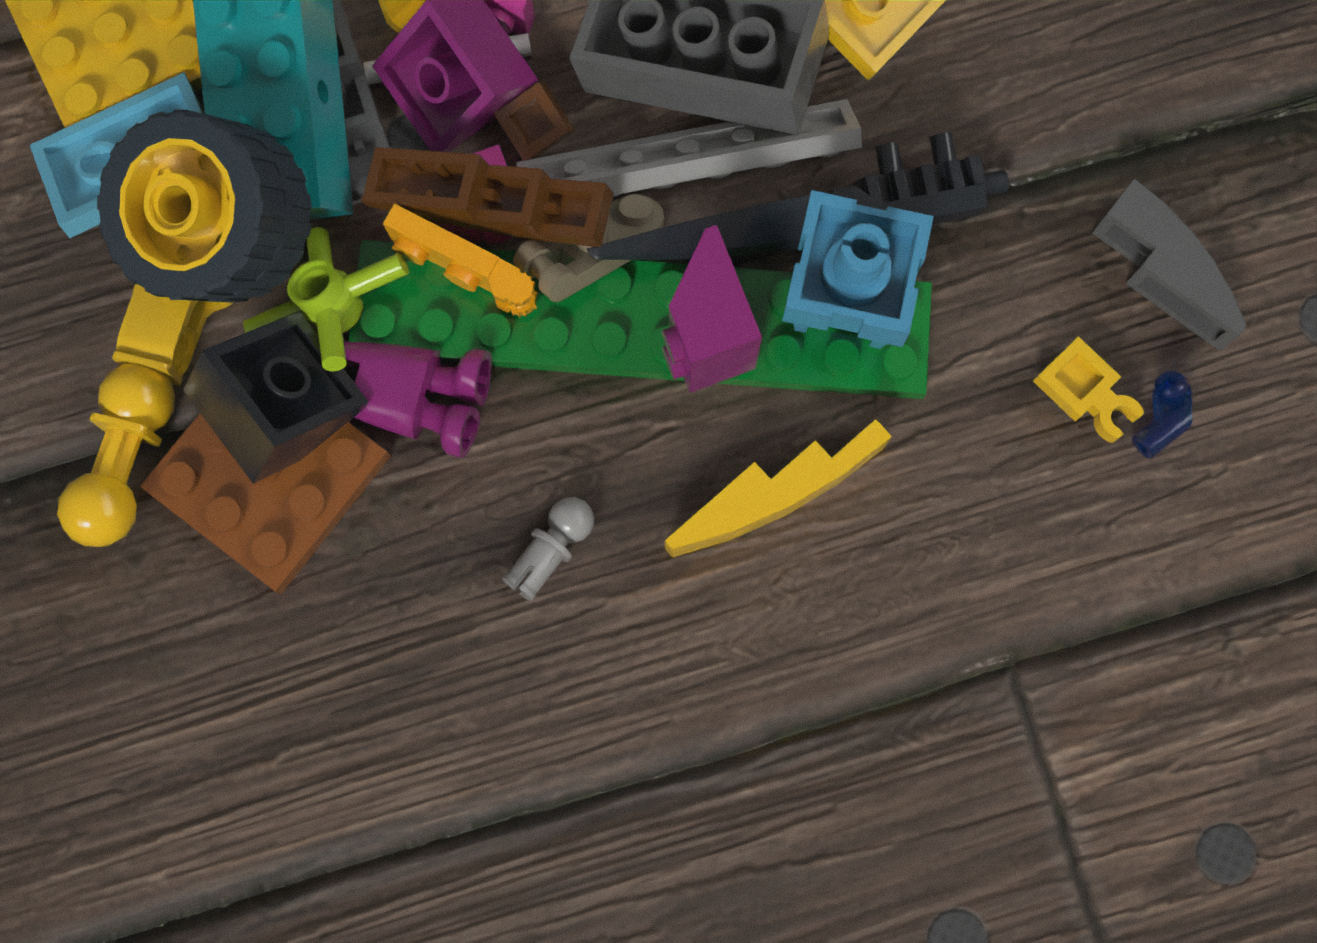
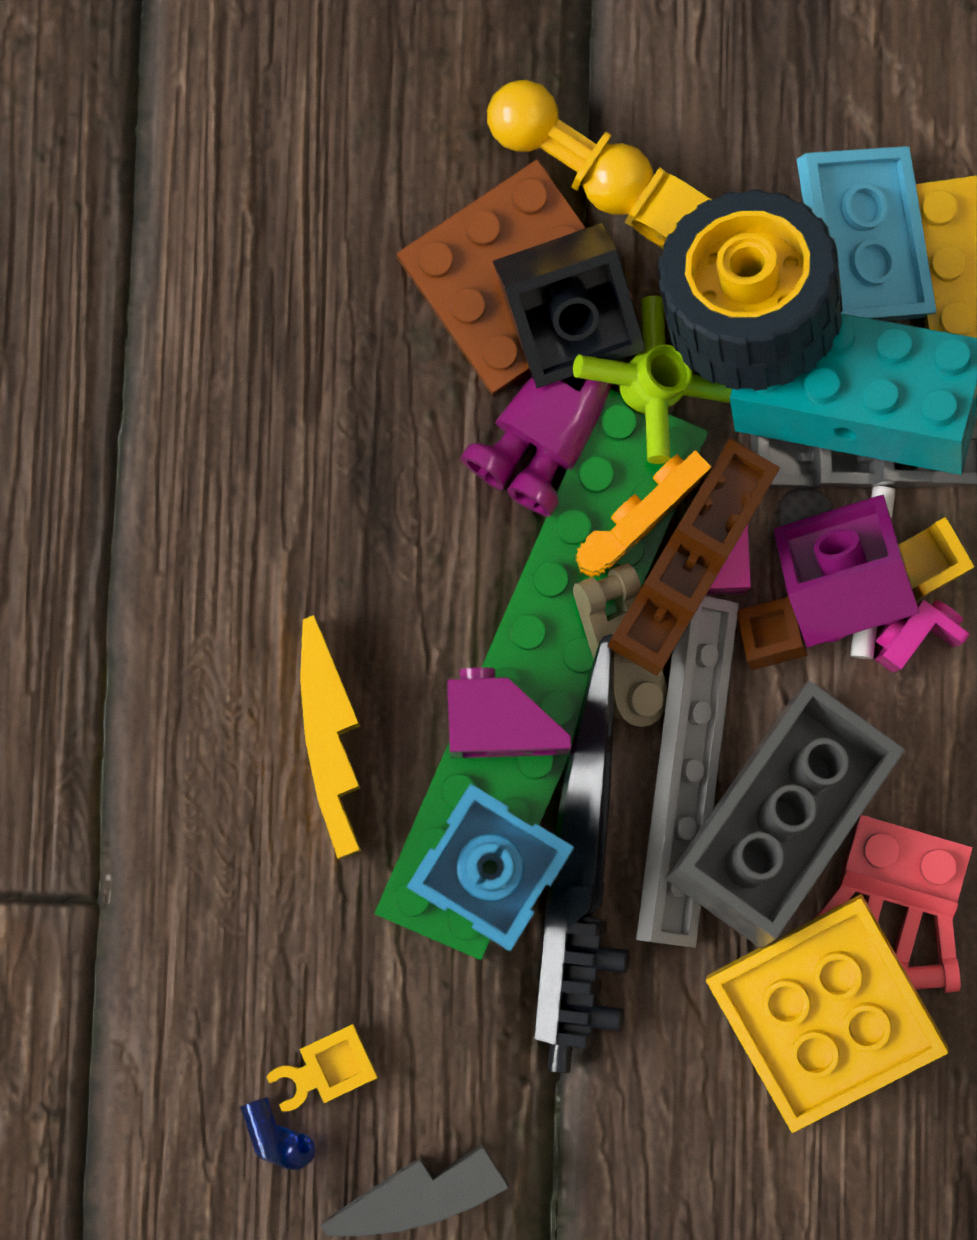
camera: 105 degrees right, 5 degrees up
(569, 522) = (367, 538): light grey pin -> none

